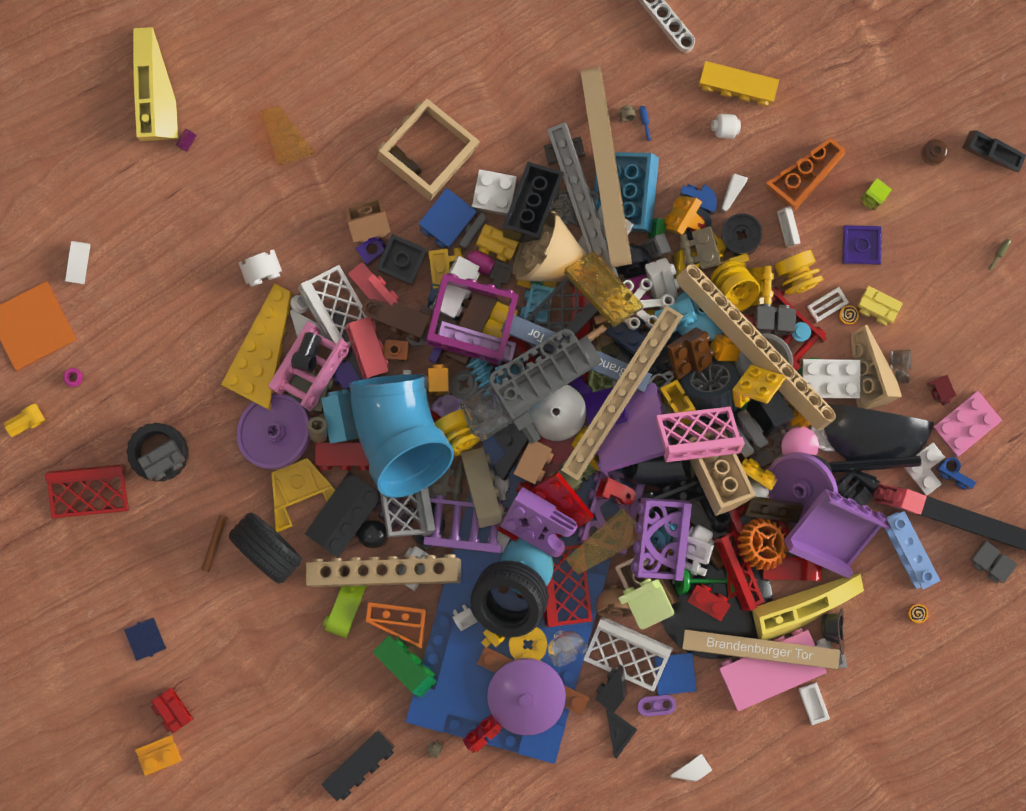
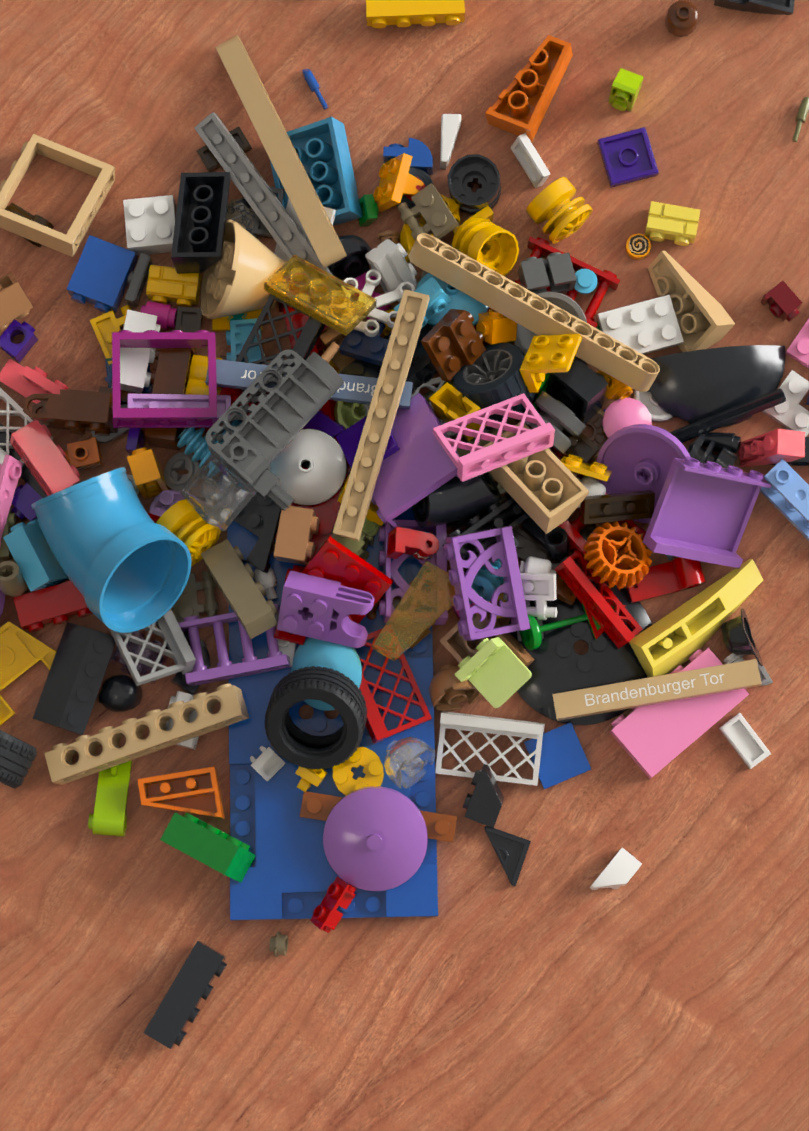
camera: 15 degrees left, 5 degrees down
(402, 260) = (59, 340): black brick -> none
(627, 113) = (289, 82): dark tan plate -> none
(656, 706) = (545, 801): medium lavender plate -> none
(657, 246) = (378, 224): dark grey slope -> none
(707, 602) = (571, 649): red brick -> none
(726, 126) = (415, 62): white head -> none
(764, 277) = (520, 227): yellow plate -> none
(841, 296) = (594, 256): white tile -> none
(900, 361) = (719, 283): clear smoke plate -> none

